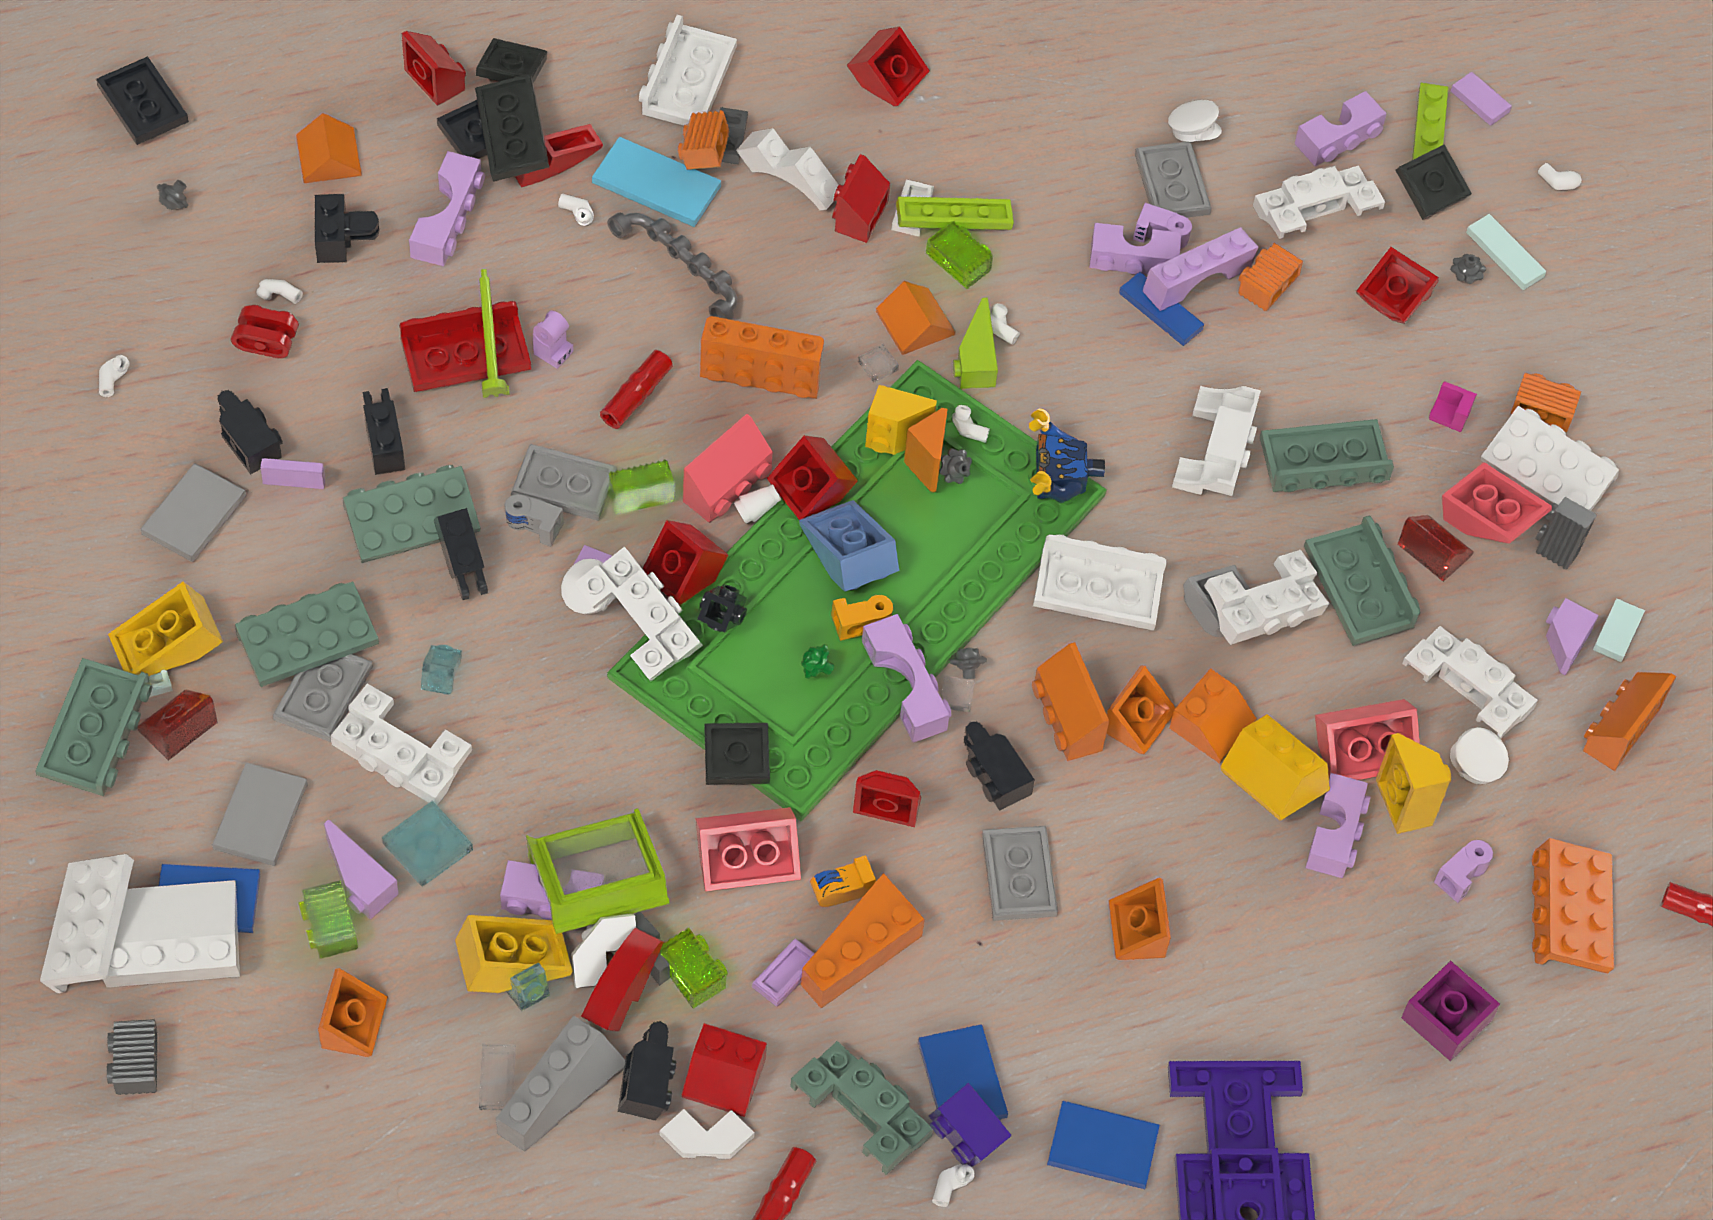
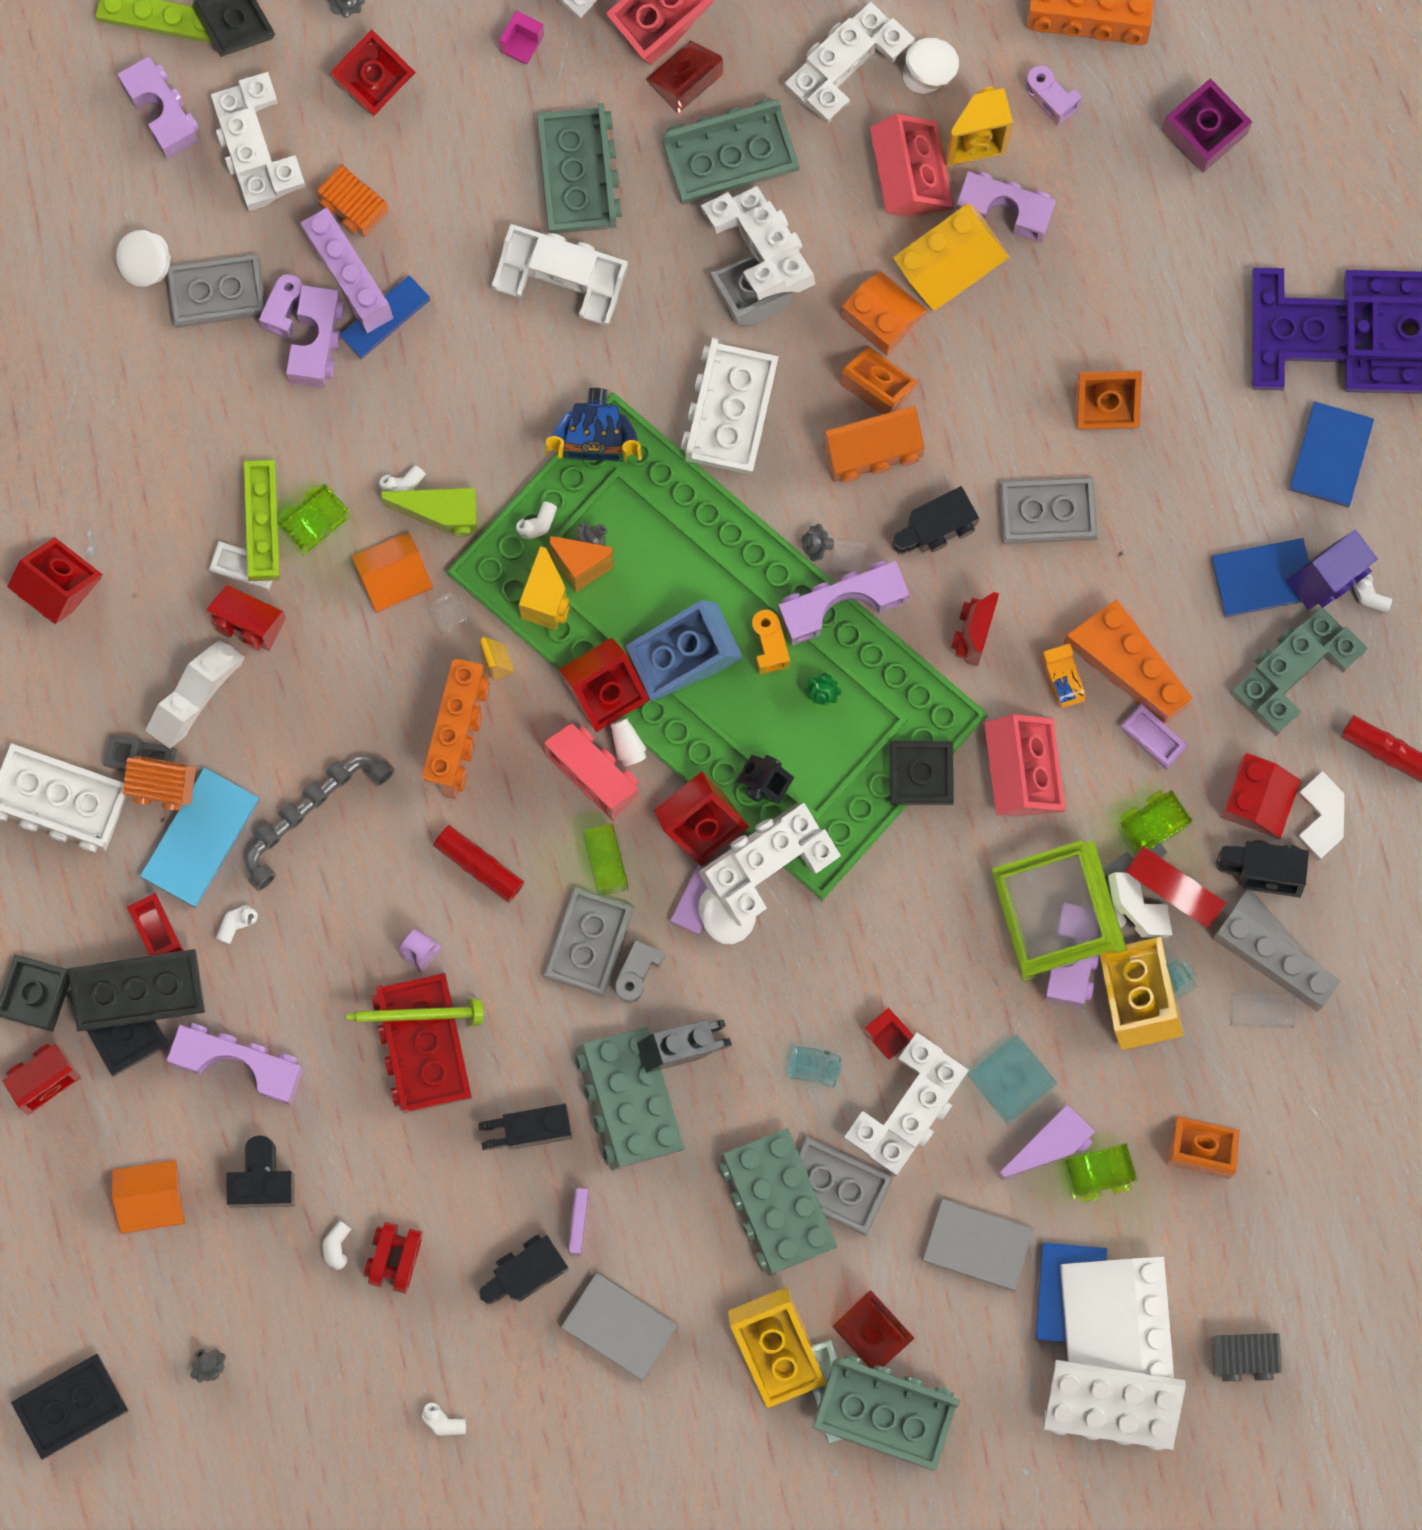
camera: 85 degrees left, 20 degrees up
(478, 728) = (888, 1033): none -> red panel
(833, 391) = (496, 658): none -> yellow slope

